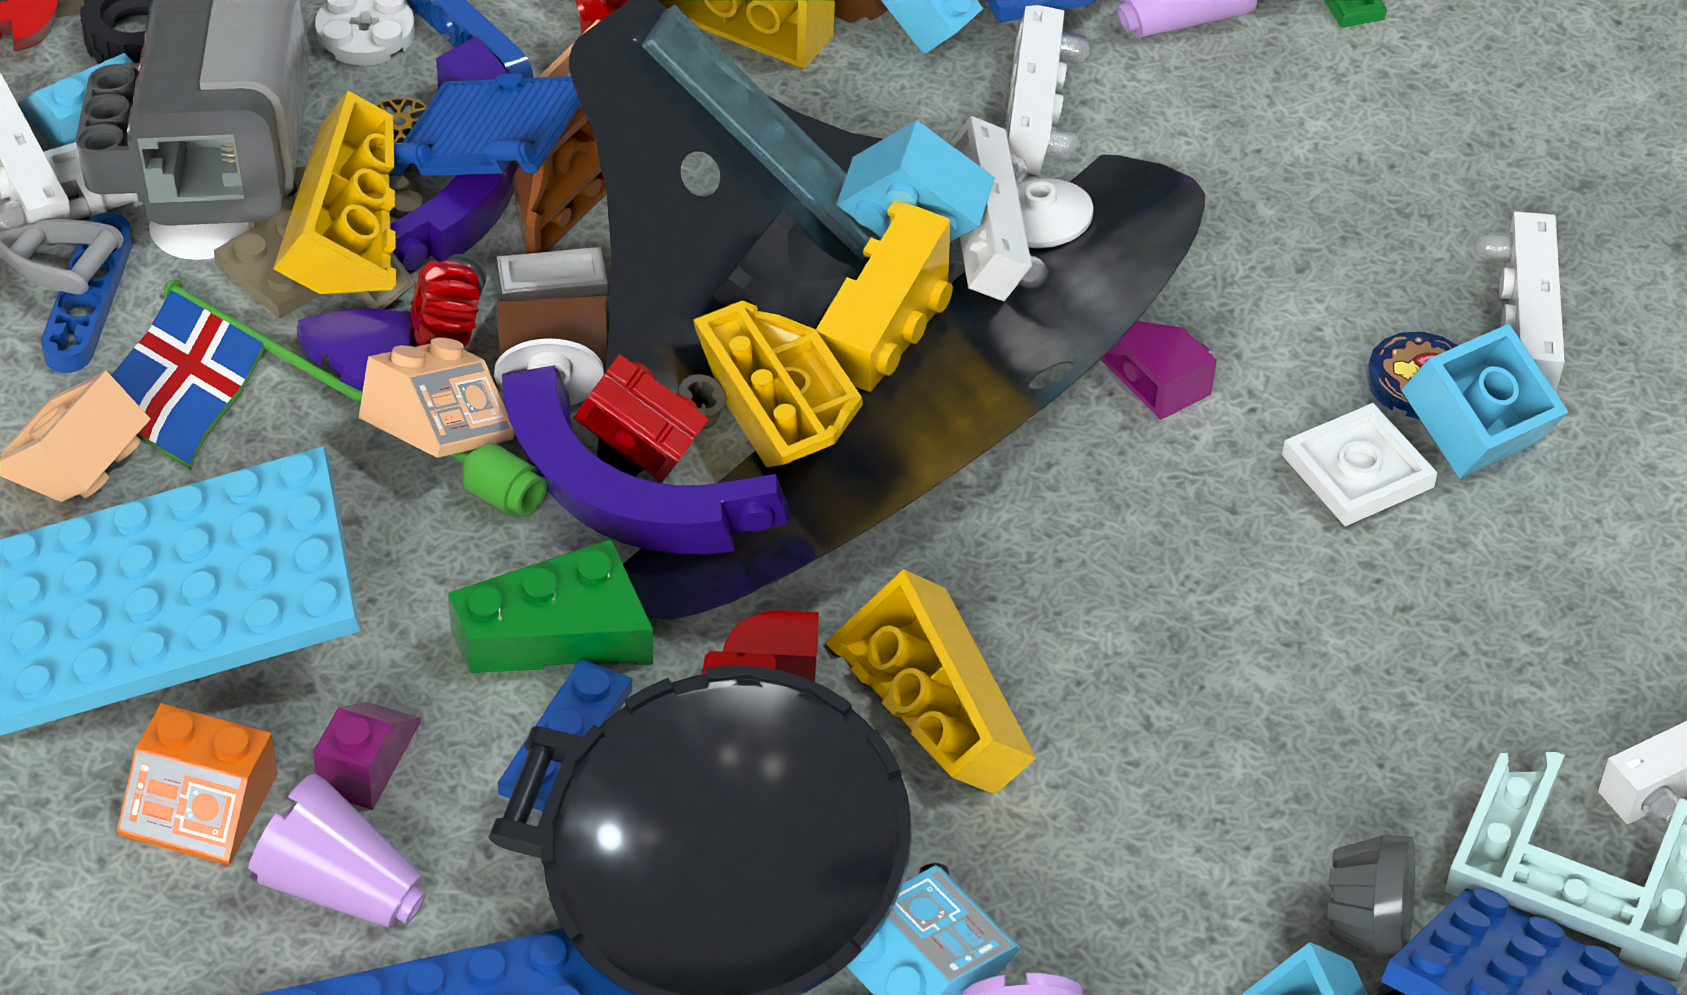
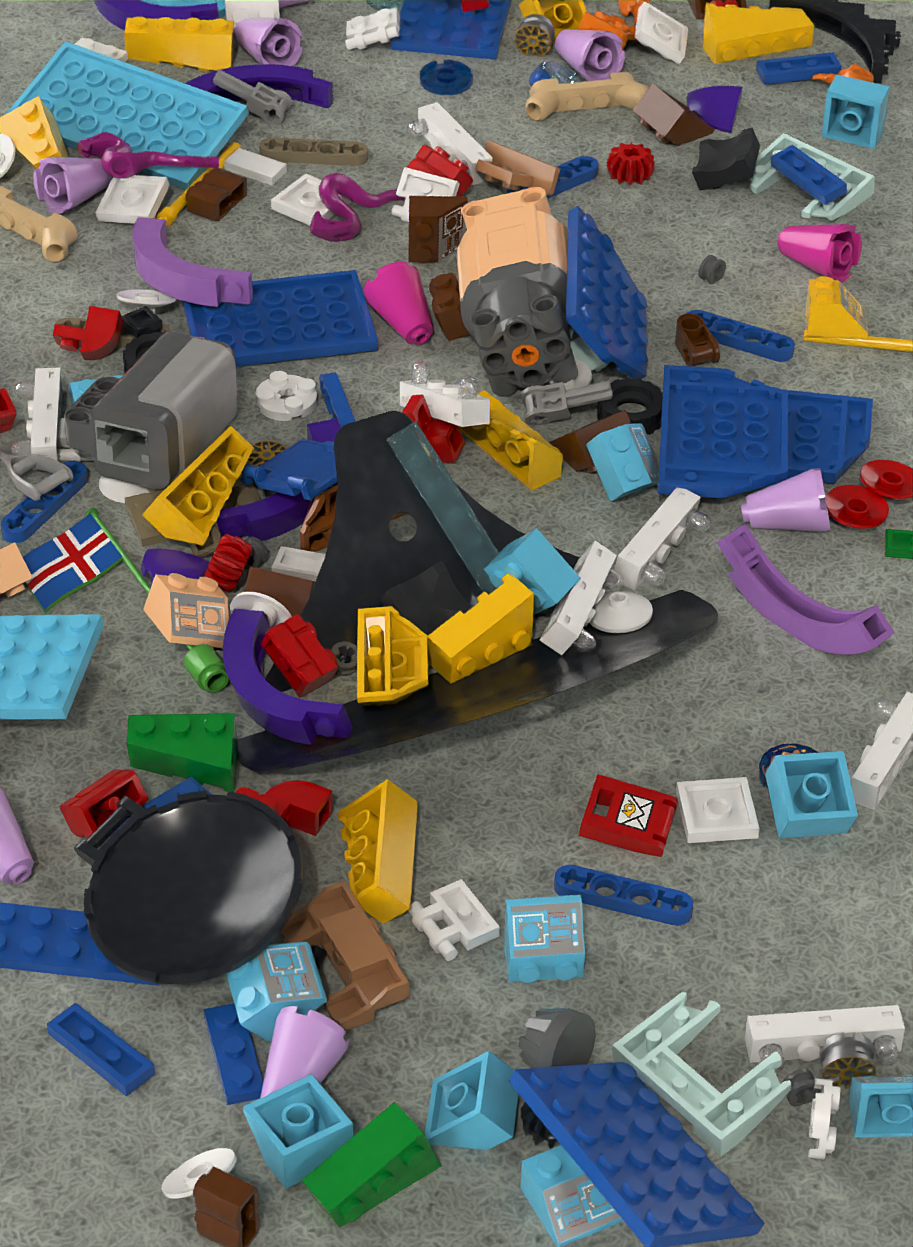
camera: 25 degrees right, 5 degrees down
(363, 750) = (42, 786): magenta slope -> none
(478, 746) = (99, 801): none -> red brick
(1008, 860) = (355, 951): none -> medium nougat bracket
(1110, 741) = (461, 912): none -> white plate
(1162, 367) = (630, 717): magenta slope -> none
(1257, 508) = (635, 818): none -> red container
(1261, 740) = (544, 938): none -> medium azure slope
(1296, 145) = (792, 610): none -> medium lavender arch
(1306, 626) = (625, 890): none -> blue beam

